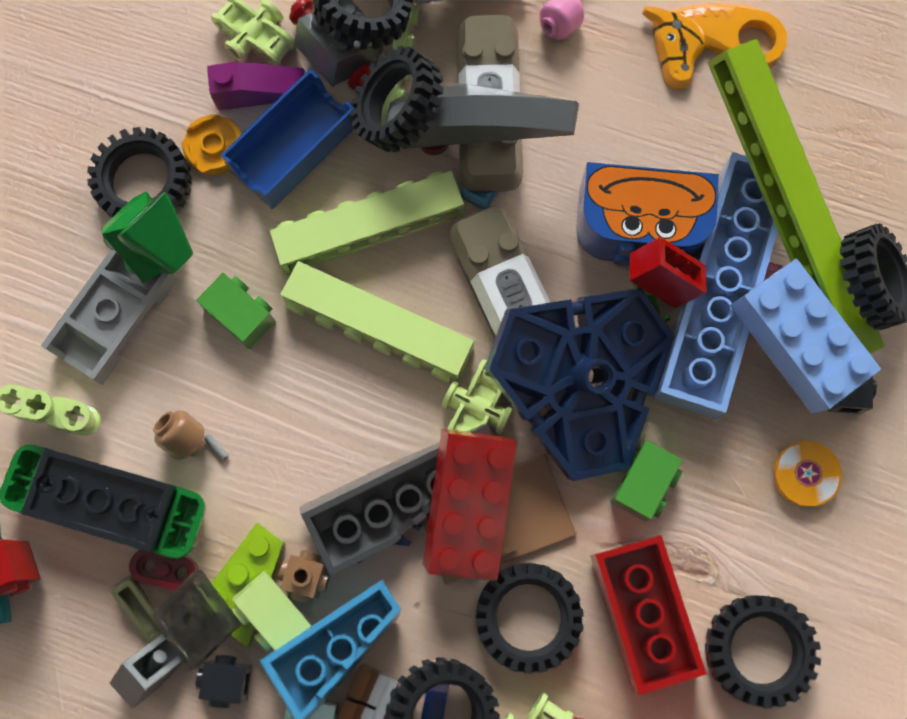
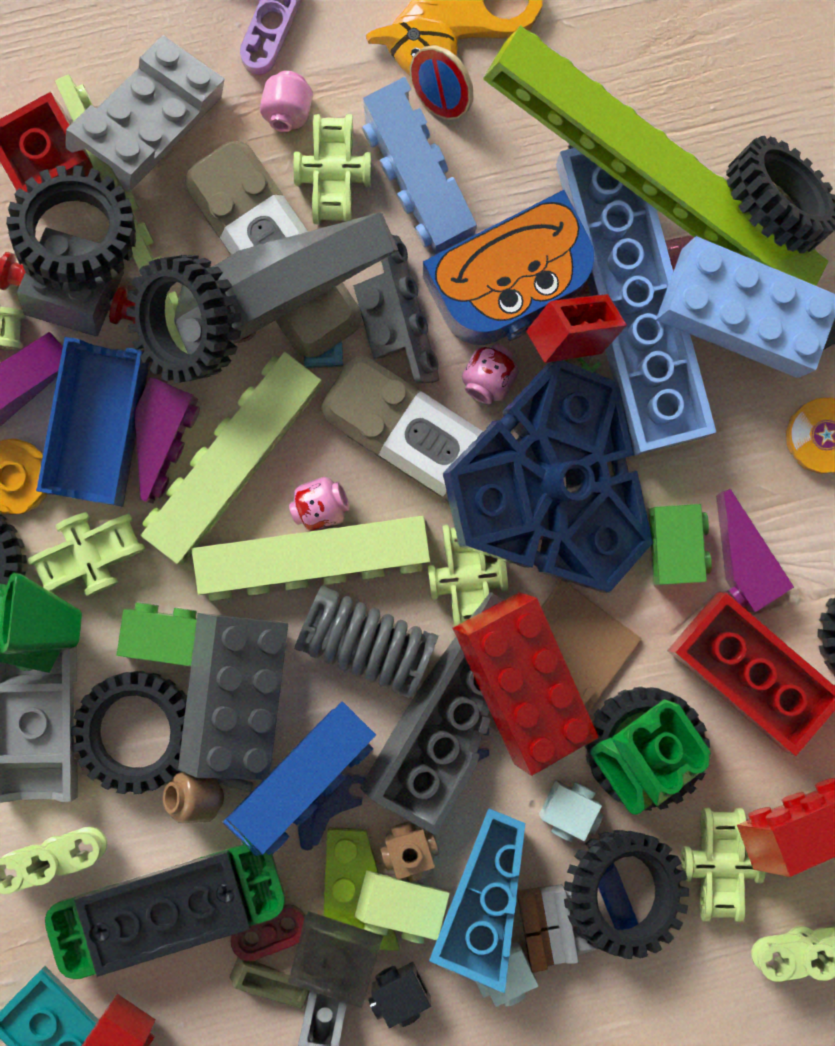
camera: 40 degrees left, 10 degrees up
(143, 341) = (89, 739): none -> black tyre
(226, 223) = (87, 553): none -> yellowish green axle
(255, 380) = (233, 697): none -> dark grey brick
(259, 465) = (299, 779): none -> blue brick
(267, 503) = (339, 800): none -> clear blue piece
(332, 172) = (159, 425): none -> magenta slope
(380, 396) = (365, 642): none -> dark grey piece
(406, 289) = (319, 504): none -> bright pink head
(442, 628) = (571, 811): none -> light aqua brick
(528, 621) = (652, 757): none -> green piece
(544, 195) = (394, 316): none -> dark grey bracket
(567, 73) = (332, 169): none -> yellowish green axle
(585, 275) = (490, 374): none -> bright pink head
(623, 101) = (416, 167): none -> light blue wedge
(676, 62) = (441, 82): none -> piece
(692, 530) = (748, 561): none -> magenta slope

